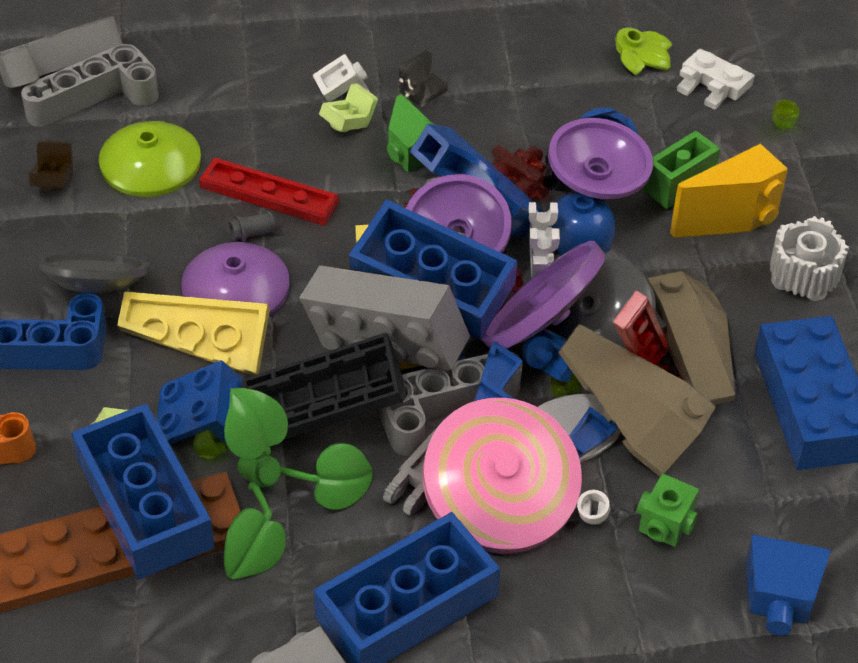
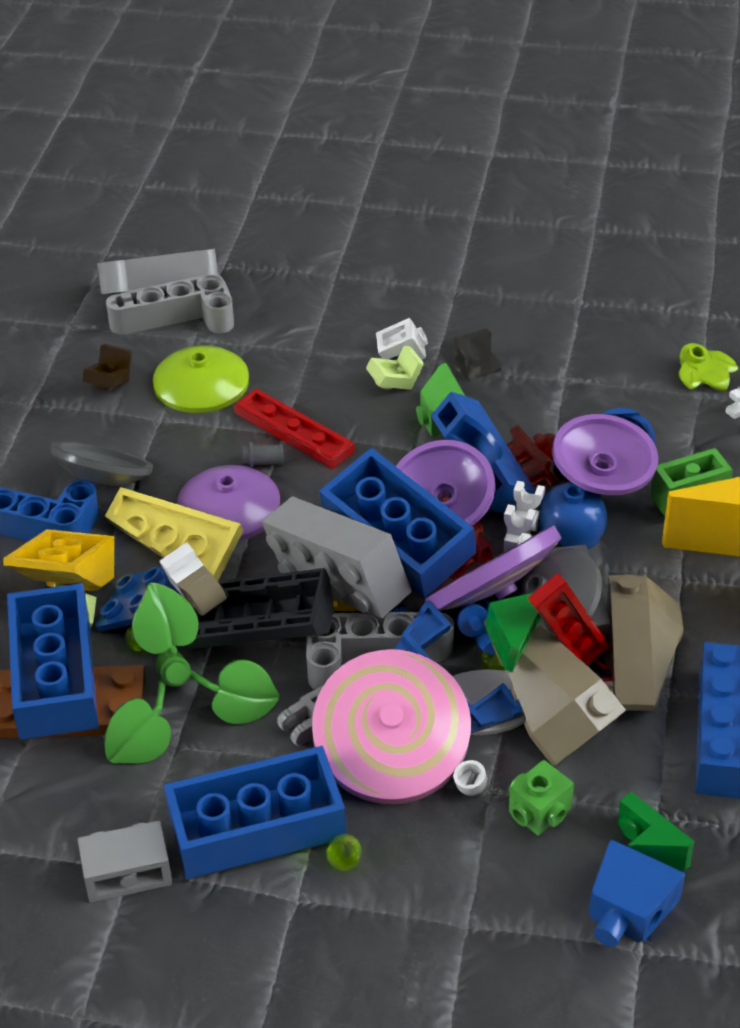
camera: 20 degrees right, 5 degrees down
(105, 379) = (65, 559): none -> yellow slope
(249, 370) = (192, 579): none -> leg
(514, 608) = (336, 850): none -> clear neon green hinge
(593, 351) = (510, 627): none -> green slope
(781, 517) = (653, 833): none -> green slope

